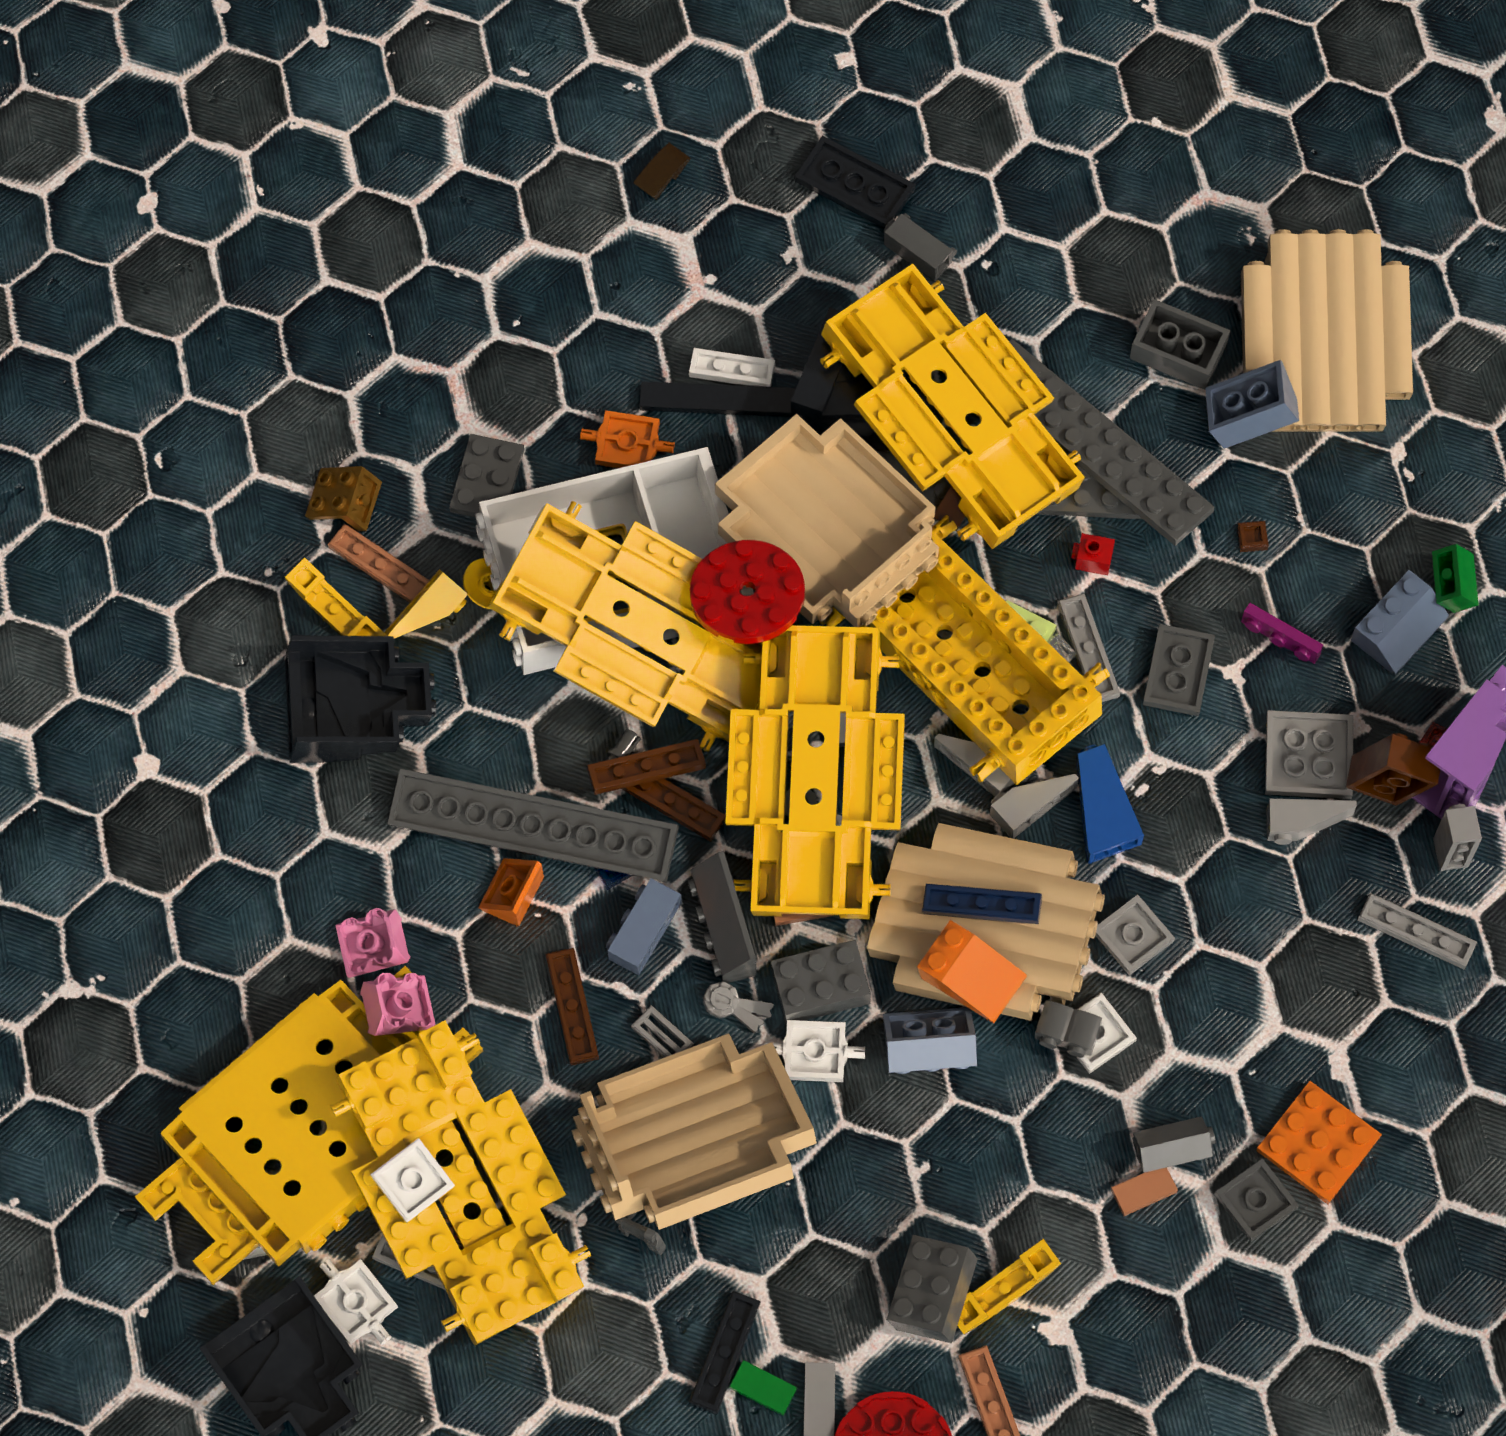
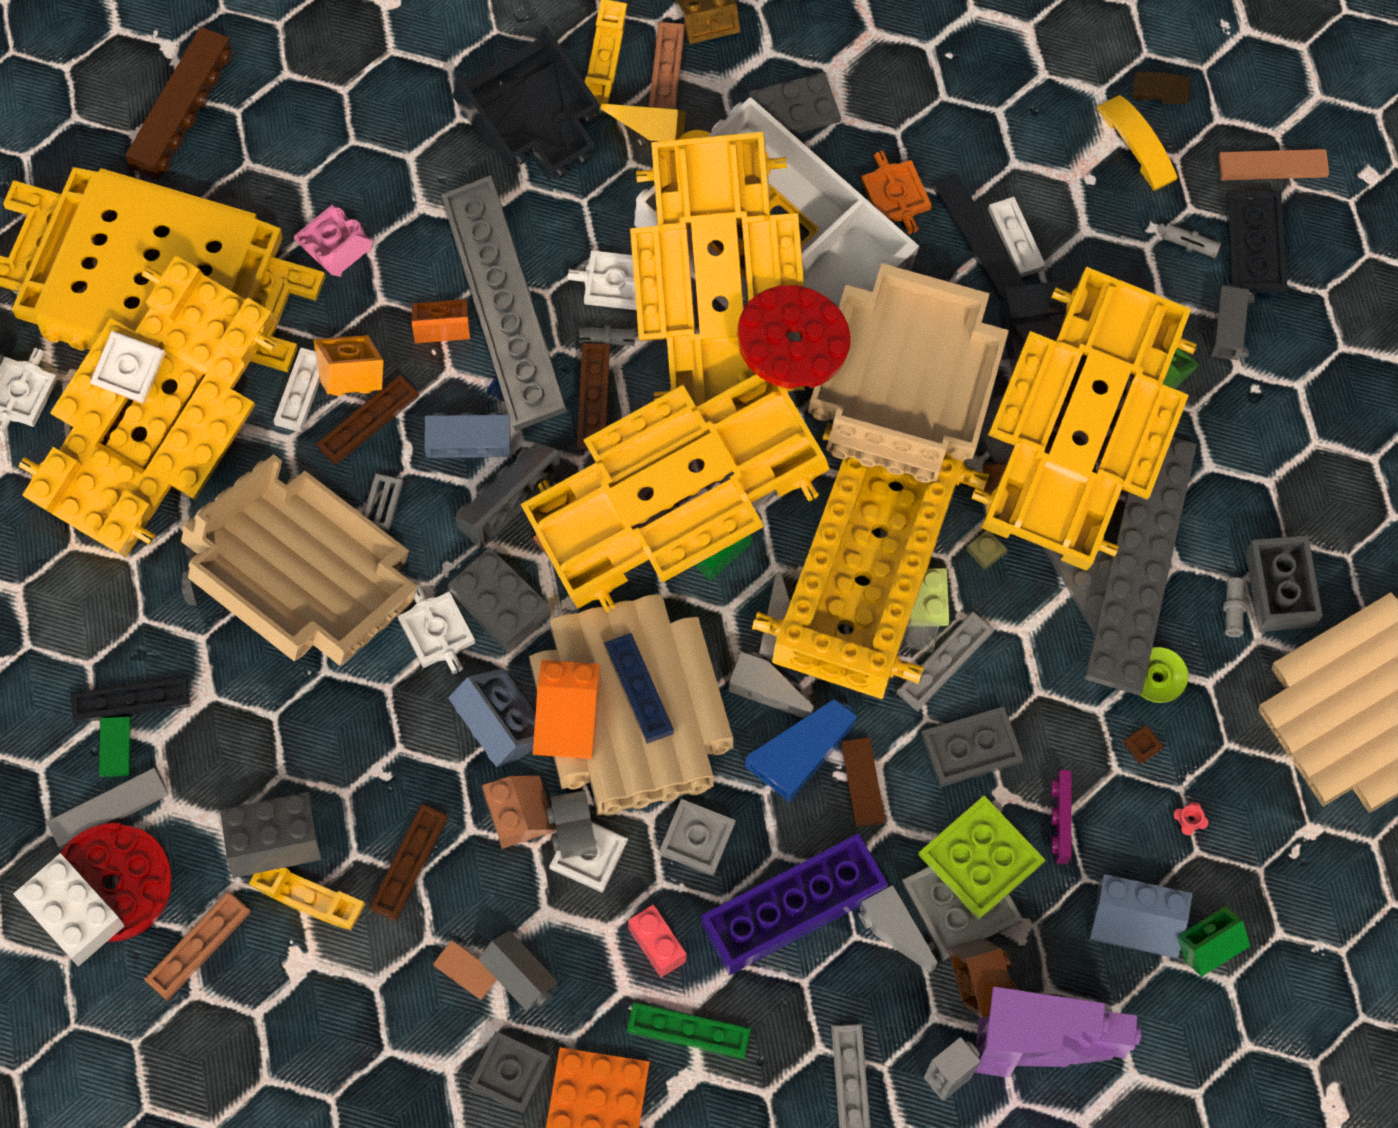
camera: 55 degrees right, 0 degrees up
(142, 1007) = (179, 103): none -> reddish brown brick
(397, 1004) = (282, 281): bright pink slope -> none
(508, 1048) = (299, 392): none -> white plate
(513, 990) = (349, 365): none -> light orange slope
(565, 722) = (608, 280): none -> white plate
(646, 766) = (606, 358): reddish brown plate -> none
(699, 216) = (1140, 139): none -> yellow slope
(723, 1000) = (439, 533): light grey piece -> none
(789, 127) = (1273, 164): none -> nougat tile
(822, 232) = (1210, 247): none -> light grey pin
(1007, 559) = (986, 549): none -> olive plate
(1018, 1187) = (408, 863): none -> reddish brown tile
(1024, 1070) = (518, 809): none -> nougat slope
(1093, 554) = (1035, 617): red brick -> none
(1159, 775) = (862, 782): none -> reddish brown tile
(1175, 395) = (1234, 607): none -> light grey pin
(1209, 478) = (1173, 674): none -> lime dish
(1209, 1016) = (657, 941): none -> coral brick
(1240, 887) = (793, 904): none -> dark purple brick
(1251, 404) = (1262, 671): sand blue slope -> none
(1285, 715) = (981, 857): none -> lime plate
(1298, 1035) = (688, 1030): none -> green tile
(1340, 529) = (1194, 810): none -> coral plate

